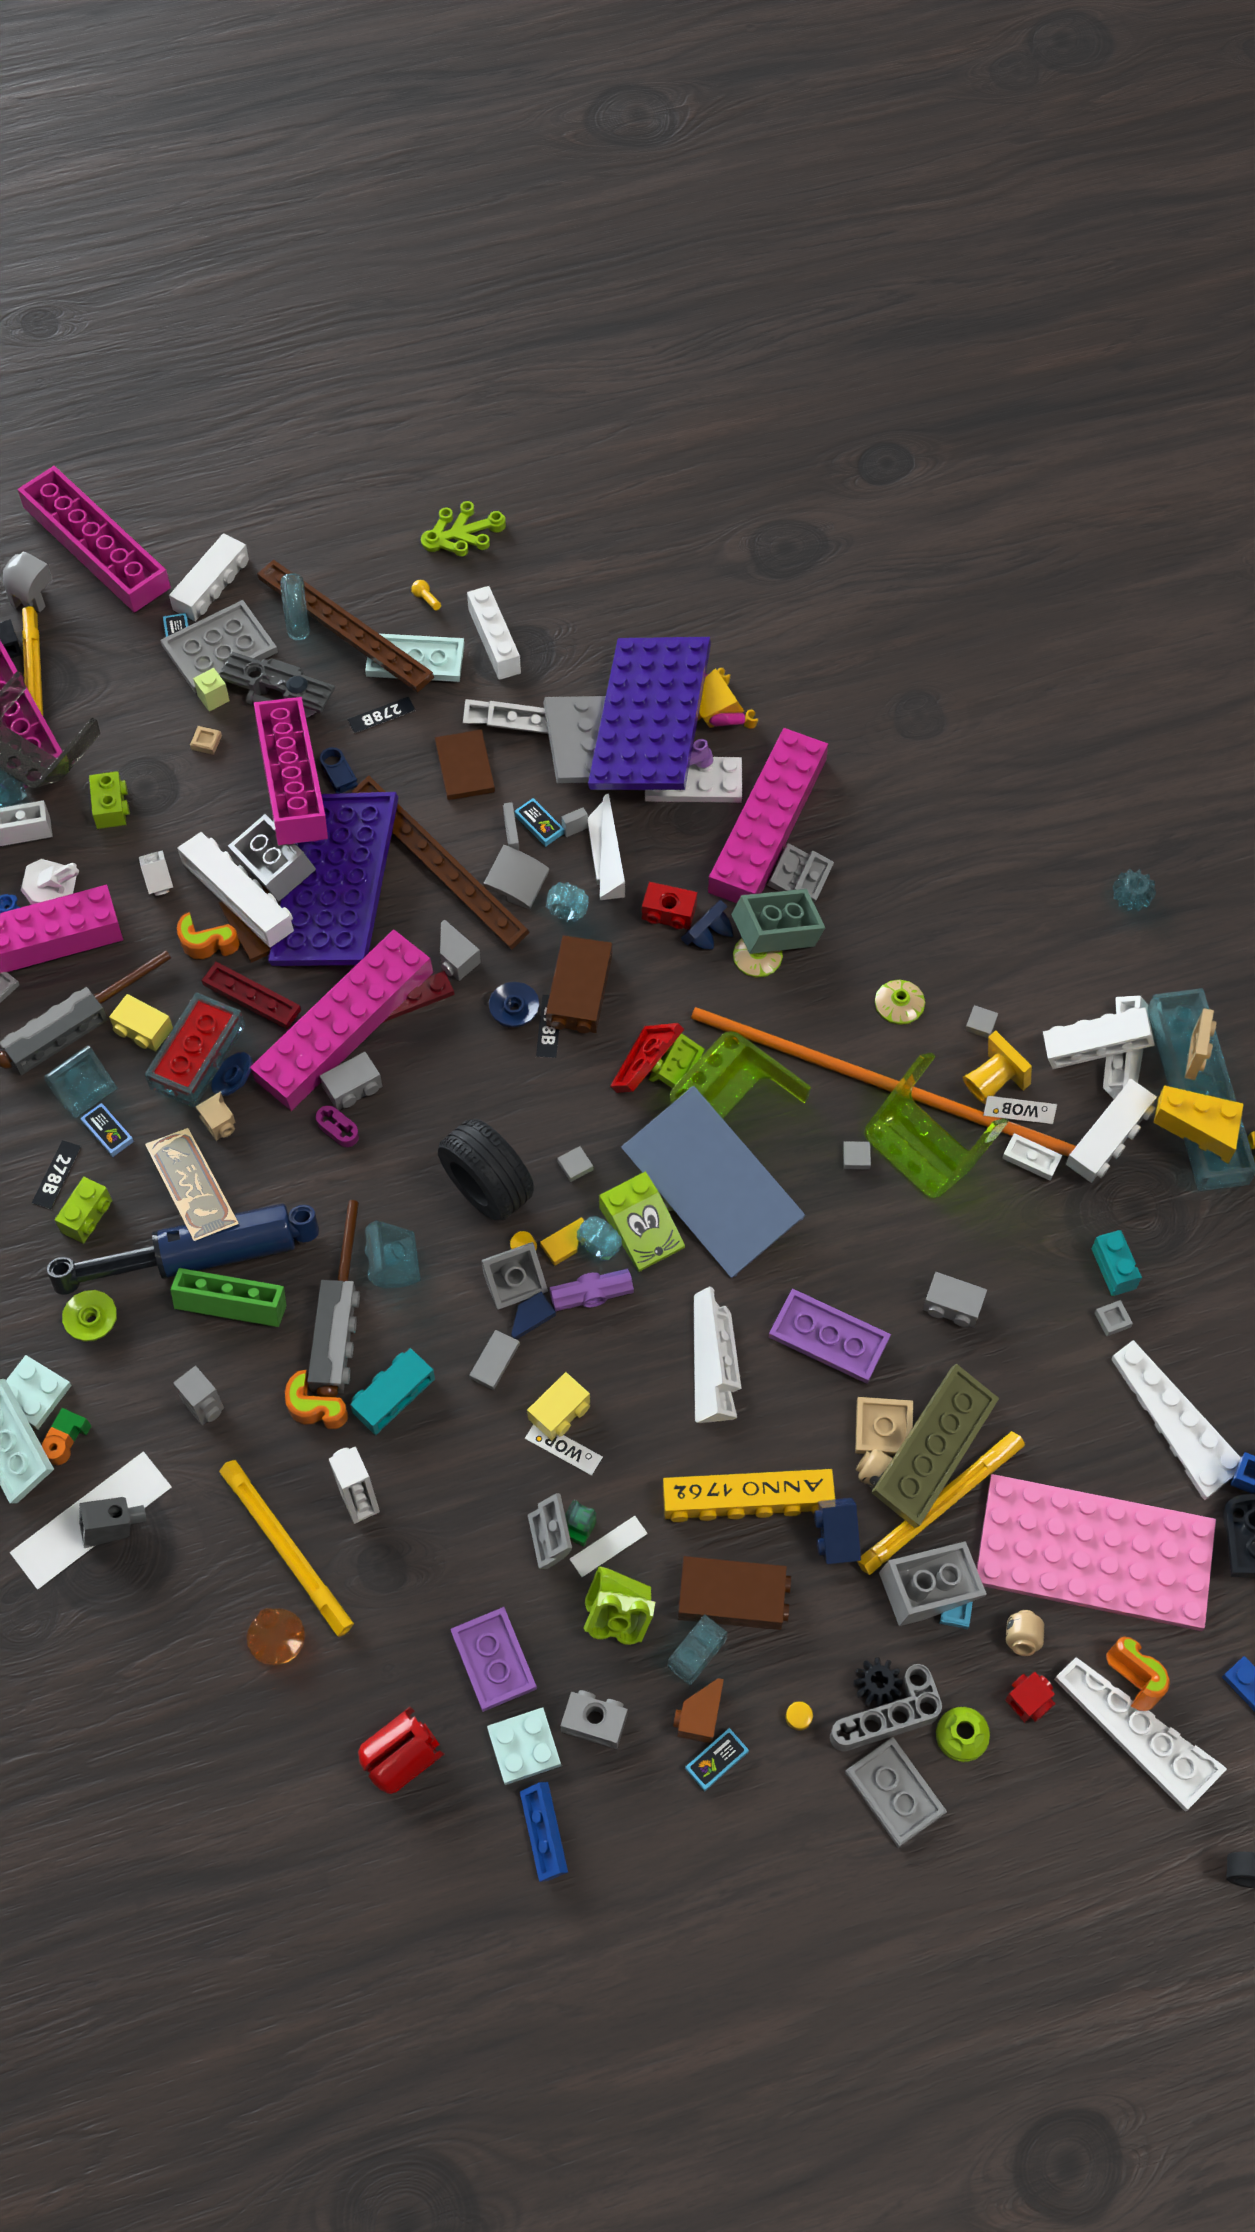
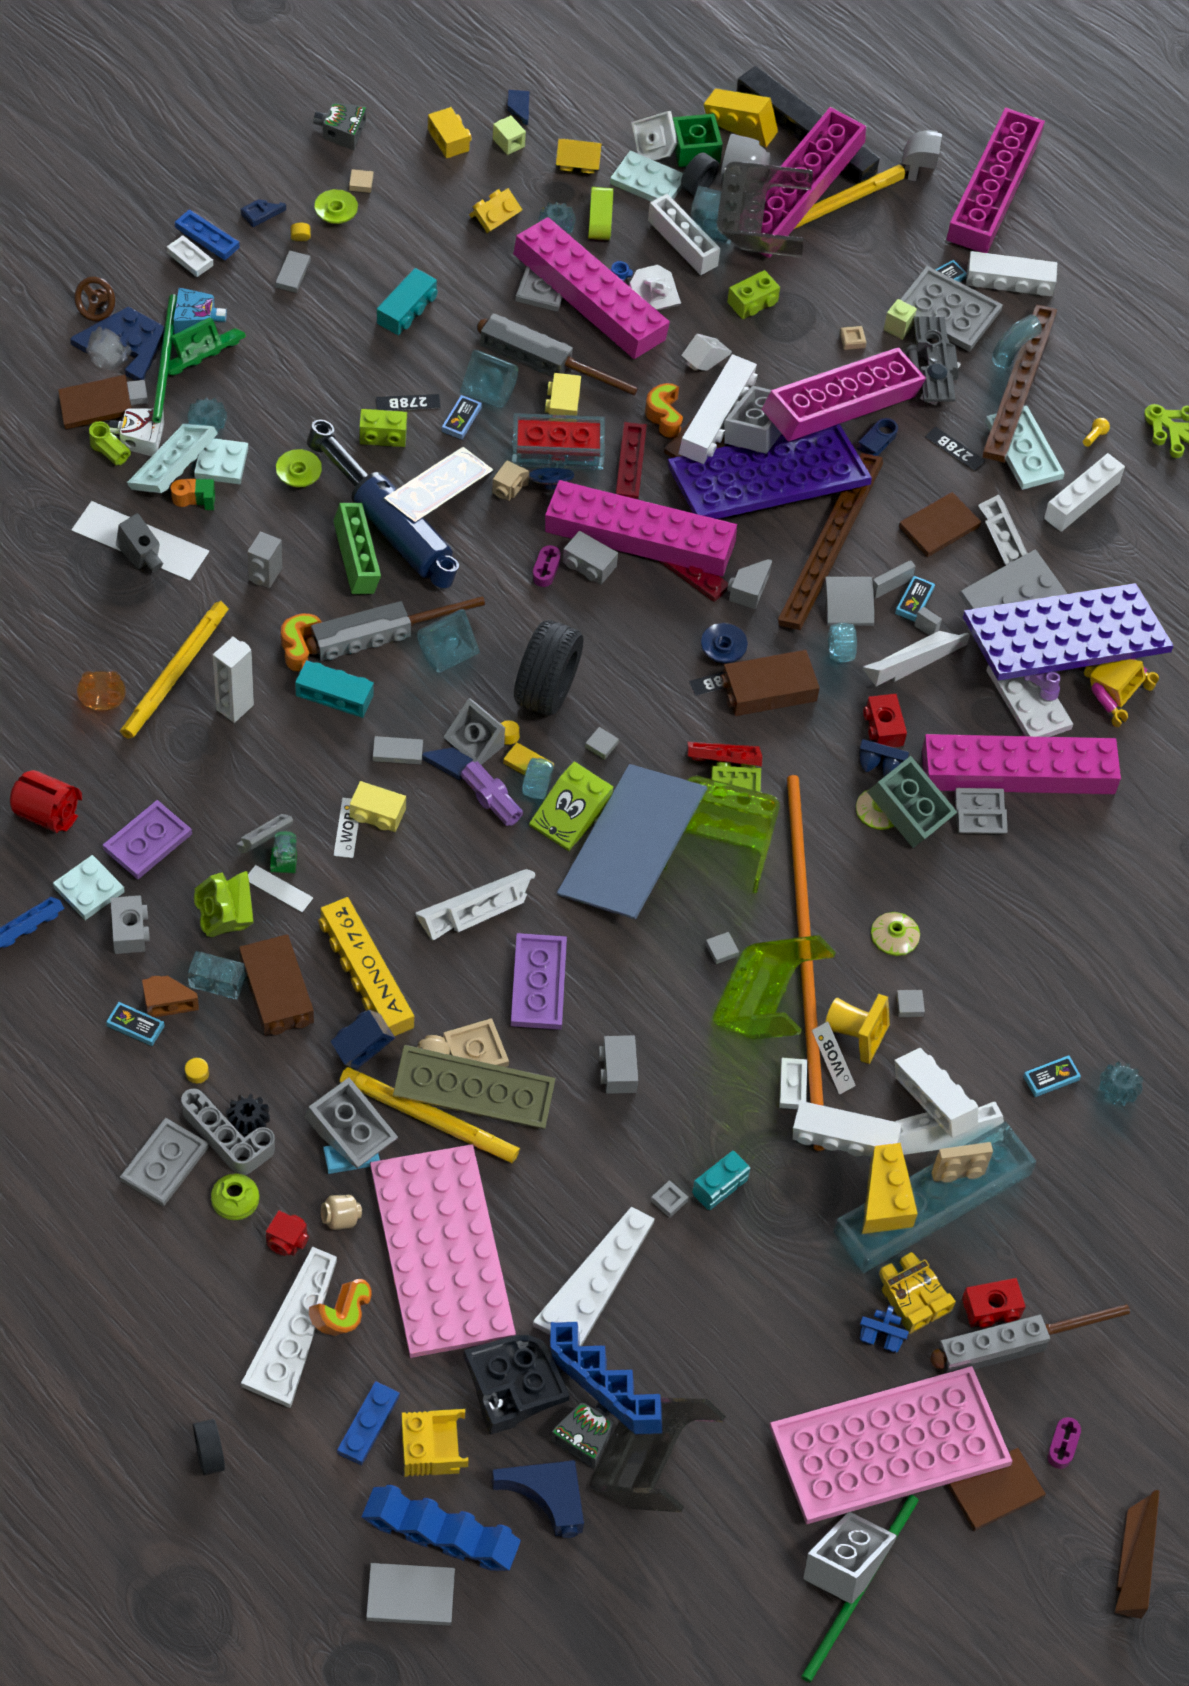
camera: 60 degrees right, 5 degrees down
(1102, 941) = (1052, 1076): none -> tile

